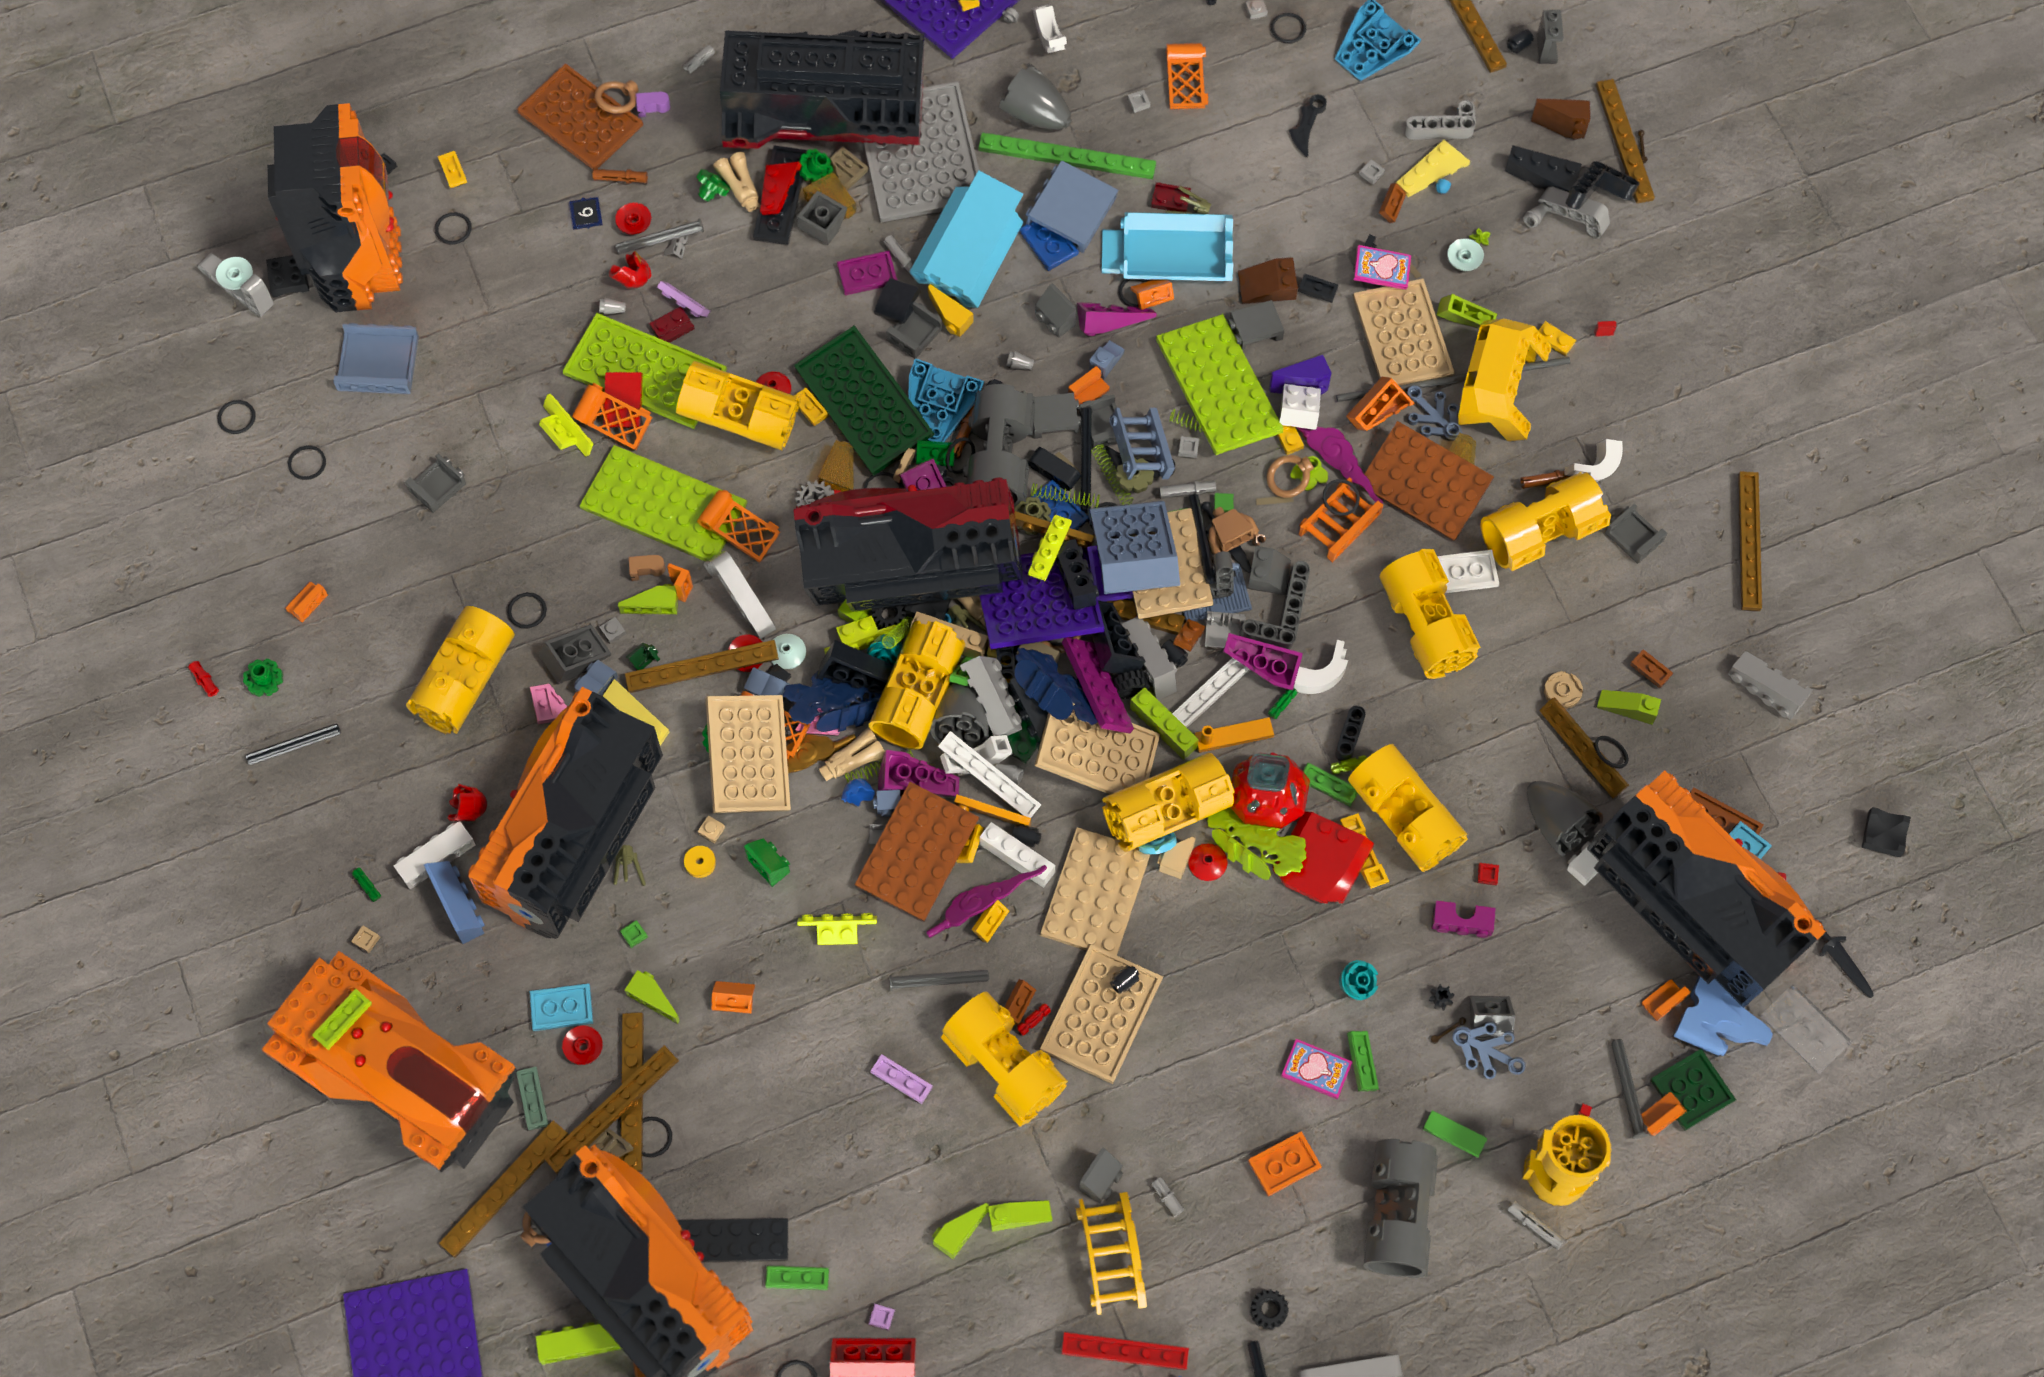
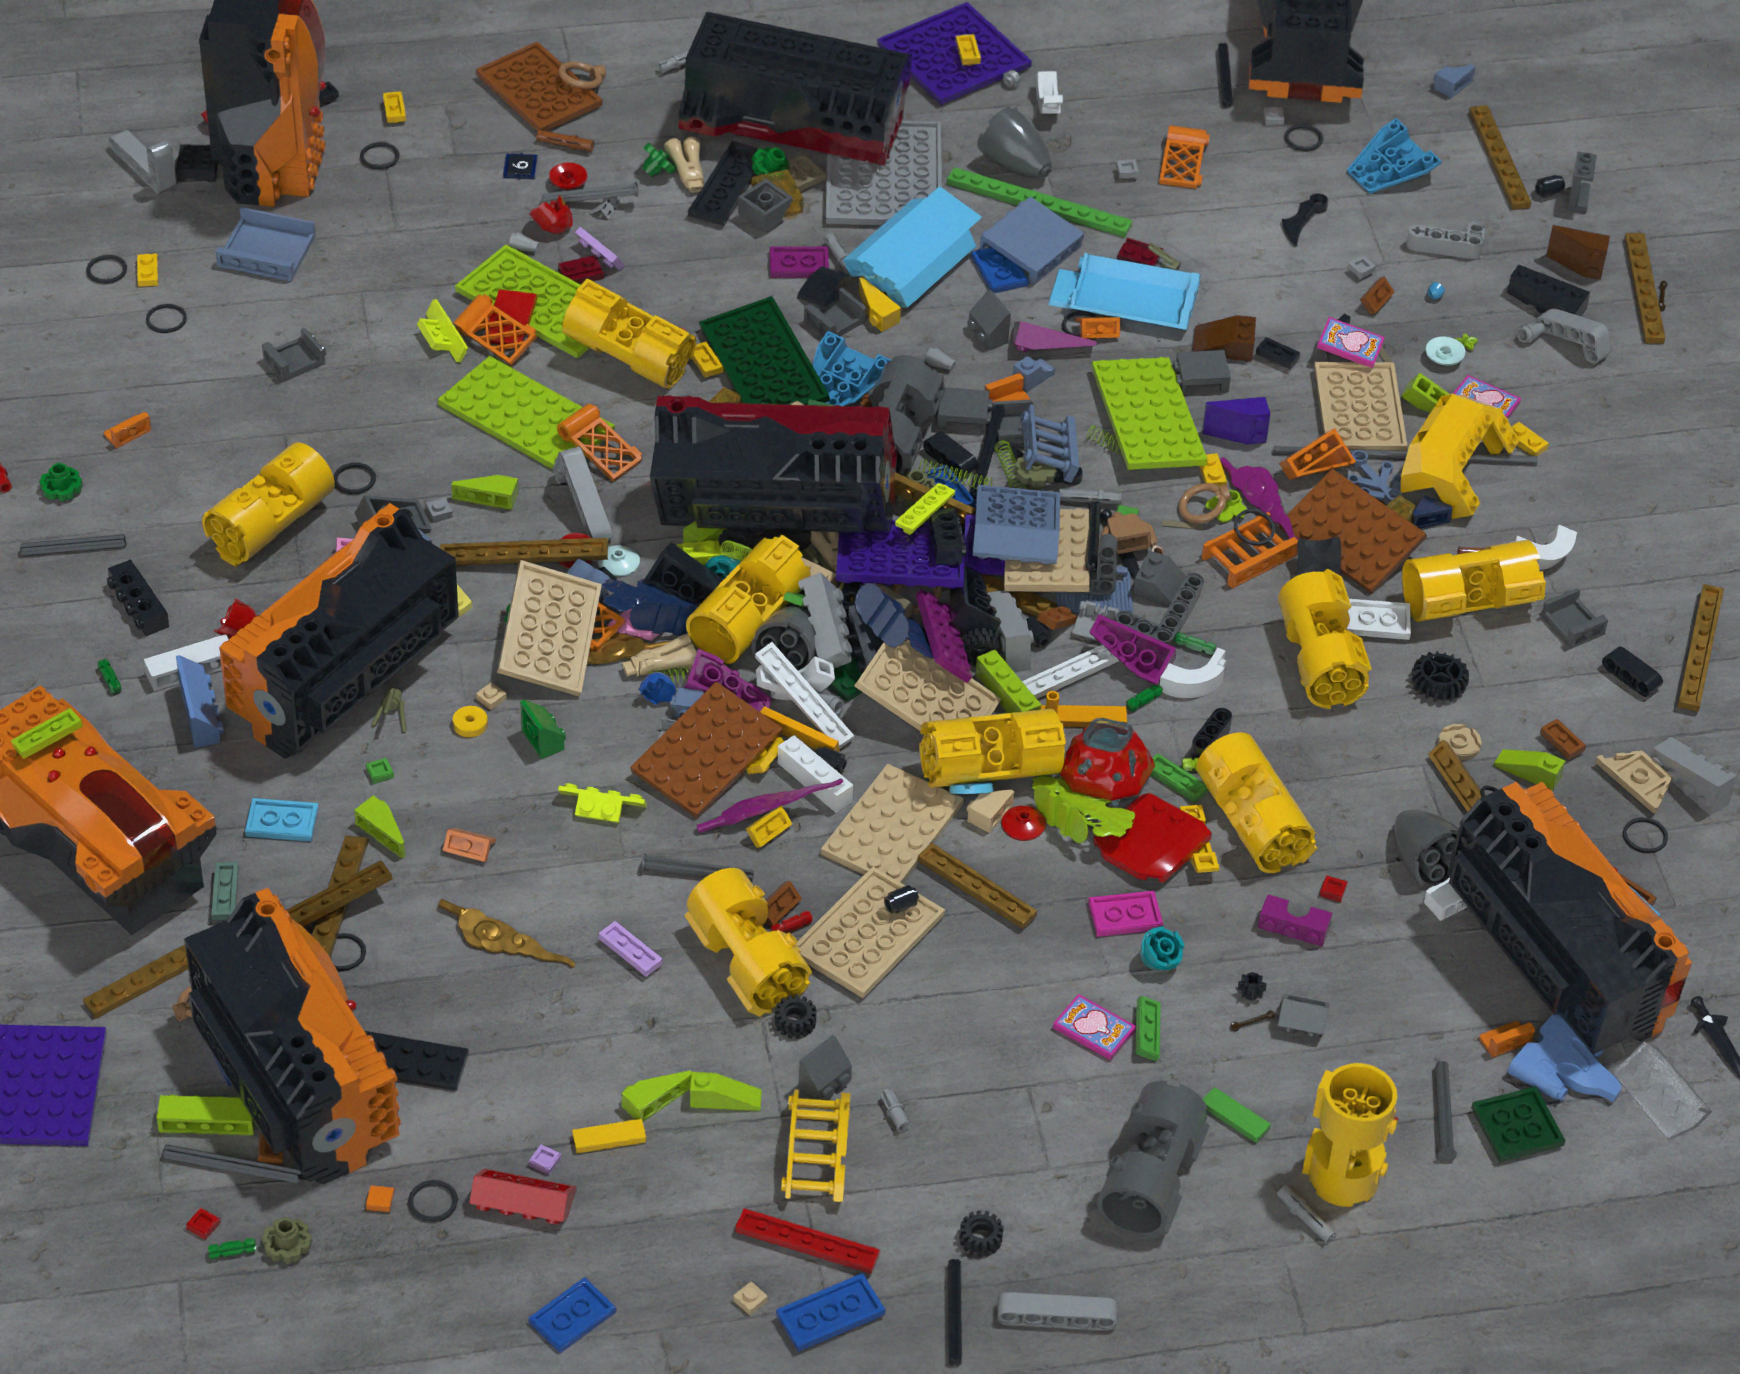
camera: 10 degrees right, 20 degrees down
(229, 268) = (138, 143): light aqua dish -> none
(274, 410) = (147, 270): none -> yellow plate
(352, 769) = (137, 597): none -> black brick
(365, 939) = (97, 719): tan plate -> none
(577, 1037) = (293, 853): red dish -> none
(643, 656) = (465, 533): dark green bracket -> none
(645, 566) = (491, 460): medium nougat leg -> none
(652, 102) = (617, 87): medium lavender leg -> none
(682, 581) = (525, 475): orange panel -> none
(775, 186) = (724, 169): red wing -> none
(782, 1090) = (498, 936): none -> pearl gold piece
(797, 1277) = (462, 1106): bright green tile -> none
(930, 1280) = (609, 1136): none -> yellow tile
(1060, 1106) = (798, 1006): none -> black tyre
(1184, 942) = (977, 885): none -> pearl gold plate
(1188, 447) = (1101, 461): light grey plate -> none
(1284, 1163) = (1035, 1104): orange plate -> none
(1300, 406) = (1230, 443): white brick -> none
(1315, 633) = (1195, 643): none -> green axle
(1316, 941) = (1125, 913): none -> dark pink tile
(1404, 521) = (1319, 555): none -> black brick
(1434, 166) = (1440, 270): light yellow wing -> none
(1486, 1048) = (1289, 1037): sand blue plant -> none
(1489, 443) = (1431, 513): none -> dark blue slope
(1510, 301) = (1488, 394): none -> tile
(1543, 634) = (1434, 678): none -> black gear
(1605, 178) = (1606, 307): black beam -> none
(1605, 328) = (1583, 438): red tile -> none
(1662, 1113) = (1477, 1138): orange panel -> none
(1697, 581) = (1632, 671): none -> black beam
(1724, 695) = (1638, 776): none -> tan wing
(1744, 739) = (1649, 820): none -> black piece

